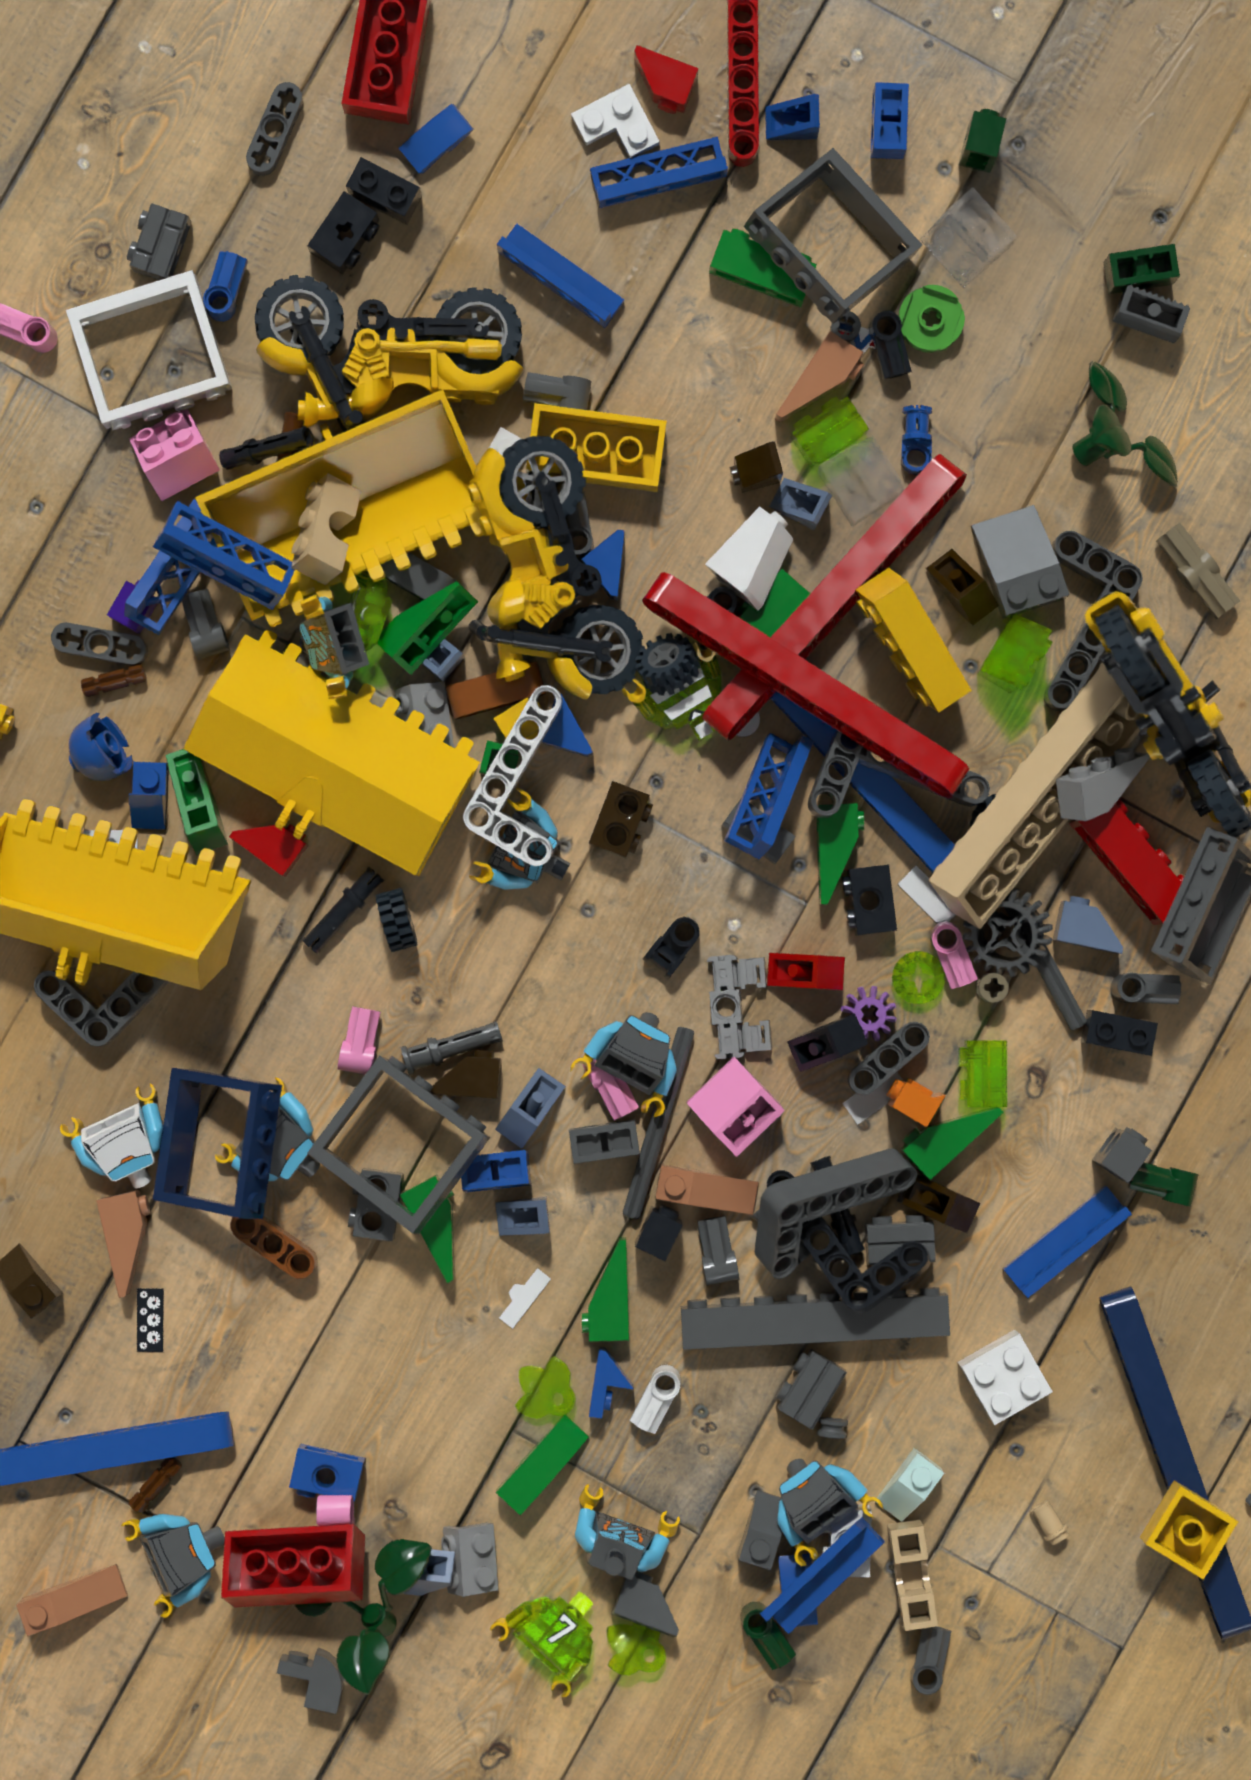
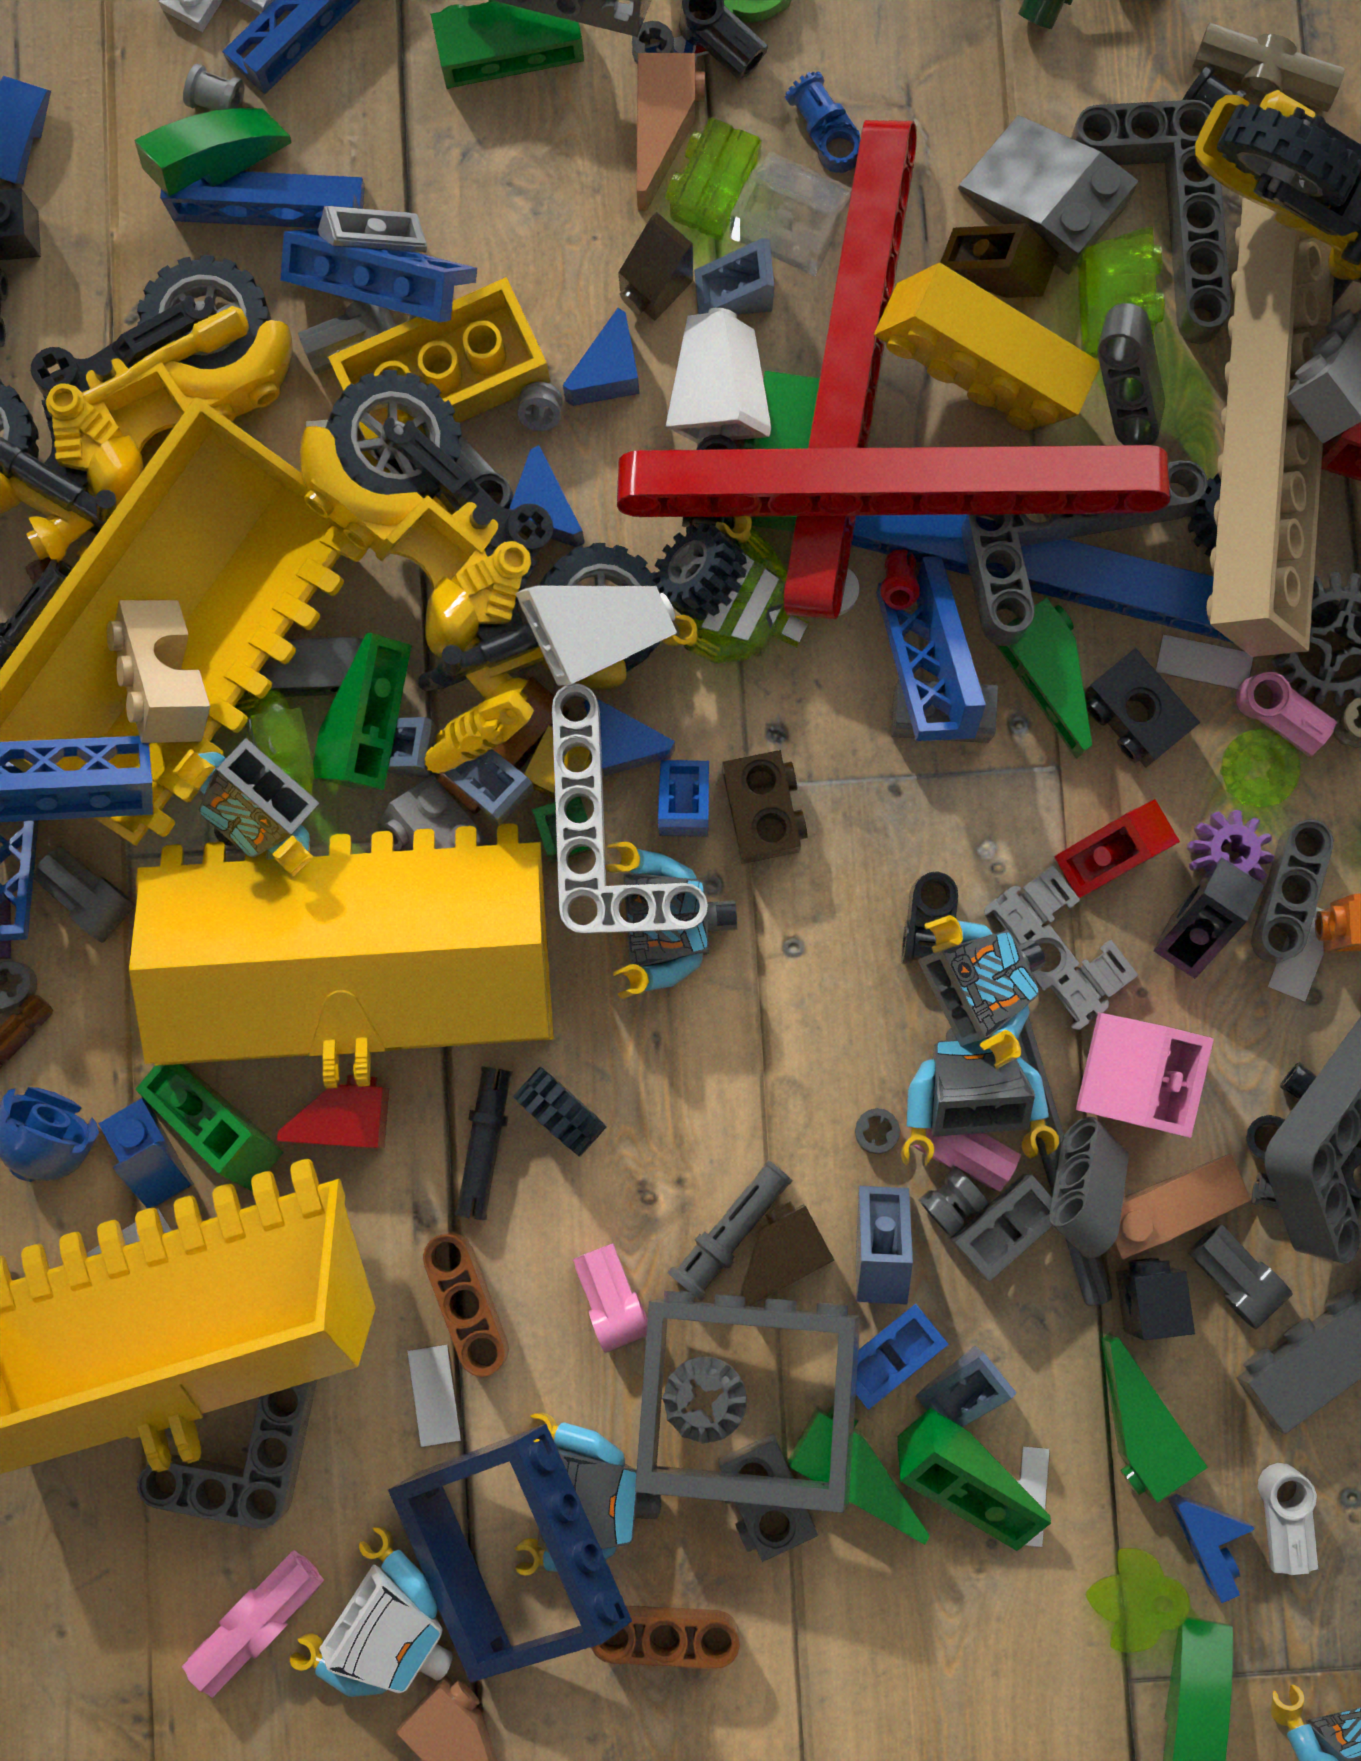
camera: 25 degrees left, 5 degrees down
(52, 1093) = (252, 1623): none -> bright pink piece
(227, 1032) = (434, 1395): none -> white sticker
(267, 1006) = (465, 1329): none -> dark orange beam
(385, 1139) = (728, 1408): none -> dark grey gear
(472, 708) = (492, 784): none -> sand blue slope
(483, 679) = (478, 731): none -> yellow hinge
(493, 1264) = (967, 1480): none -> green slope
(545, 229) = (209, 147): none -> green slope
(568, 192) = (211, 90): none -> light grey bush
(574, 1051) = (863, 1125): none -> dark grey bush
(579, 785) = (683, 798): none -> blue slope
(584, 1109) = (954, 1202): none -> dark grey wheel
(586, 662) = (594, 625): none -> white slope
(593, 367) = (379, 277): none -> blue fence
(608, 341) = (372, 229): none -> light grey slope
(641, 504) = (542, 395): none -> light grey bush
(662, 1147) = (1089, 1187): none -> dark grey beam
(676, 998) = (983, 983): none -> torso
(695, 505) = (606, 367): none -> blue slope
(778, 744) = (900, 586): none -> red pin
(987, 707) = (1131, 375): none -> dark grey beam
(1153, 568) = (1209, 88): none -> black bush

